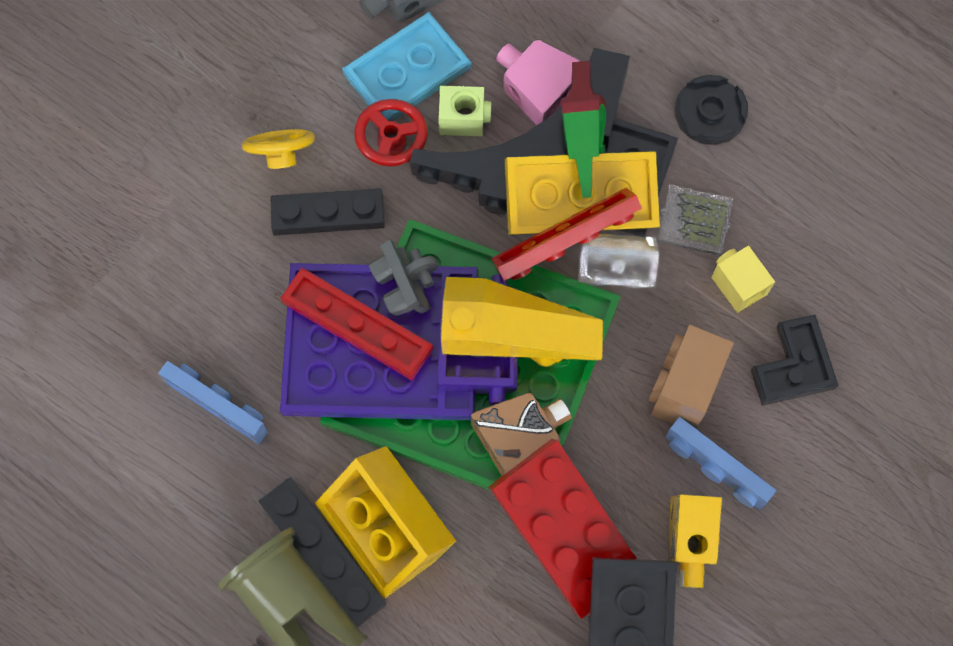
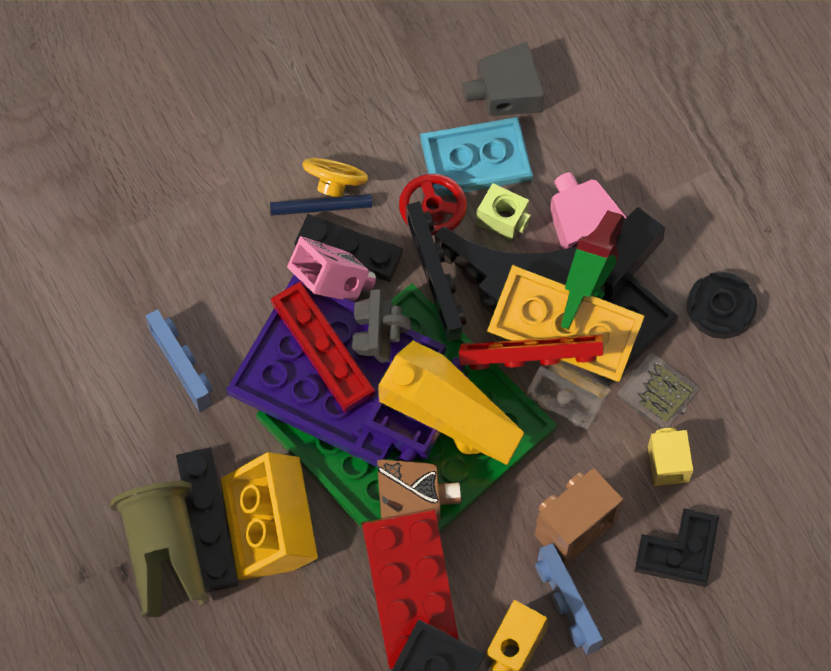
camera: 25 degrees right, 5 degrees down
(278, 181) = (321, 204): none -> dark blue bar
(339, 247) = (330, 270): none -> bright pink torso
(420, 188) = (440, 284): none -> black plate

